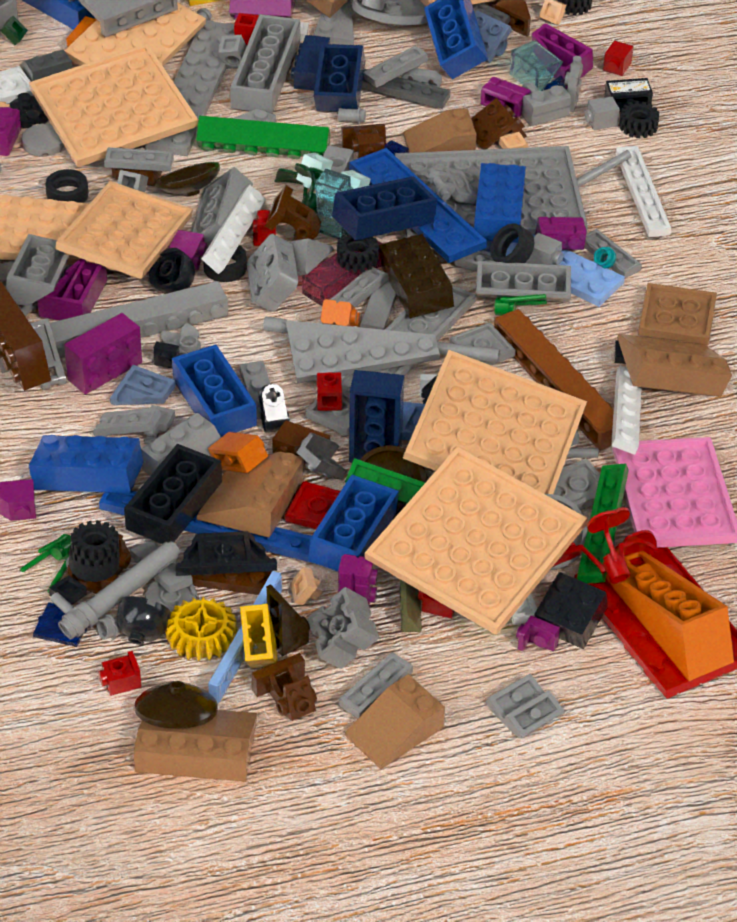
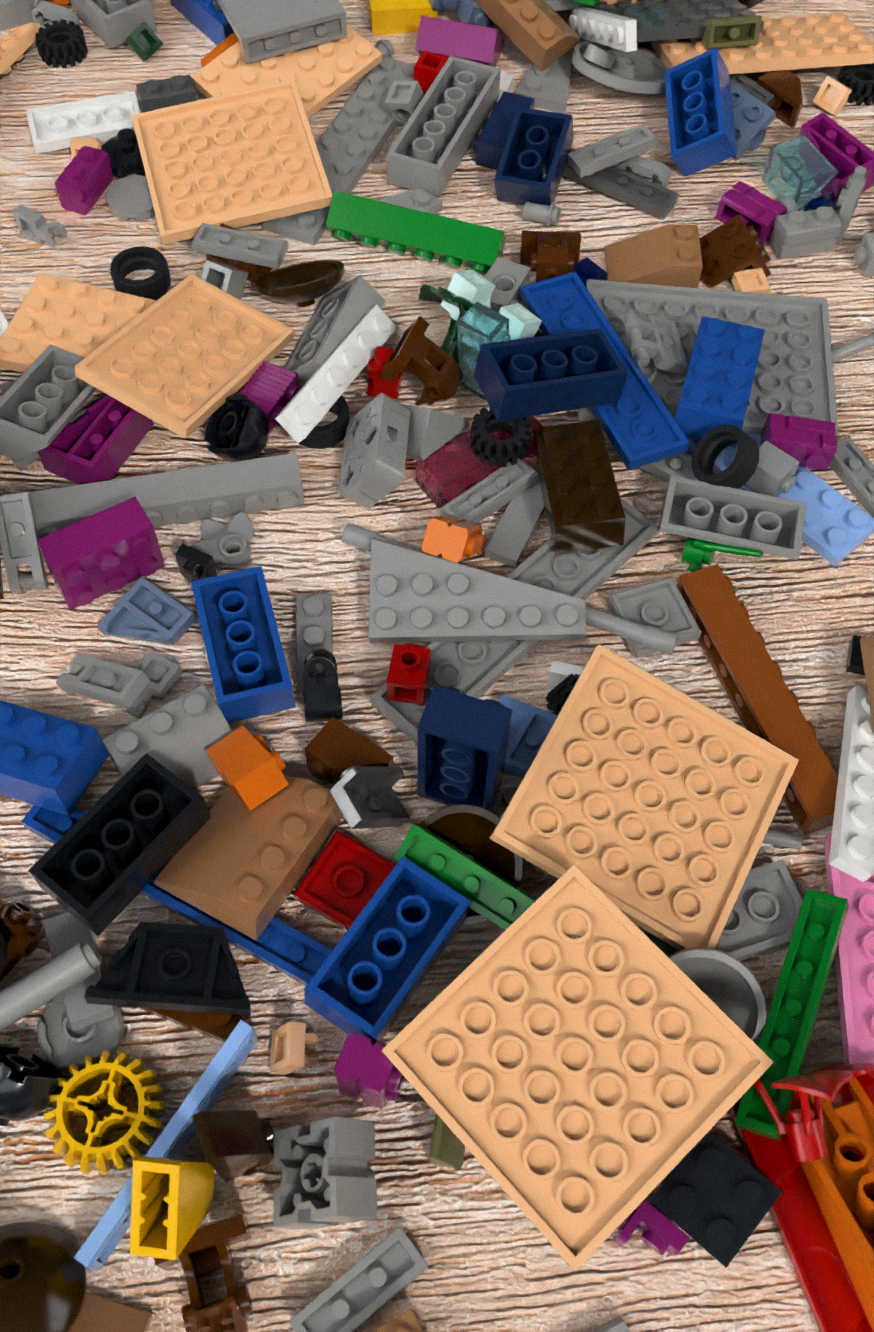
camera: 10 degrees right, 15 degrees up
(601, 253) = (850, 481): teal plate -> none

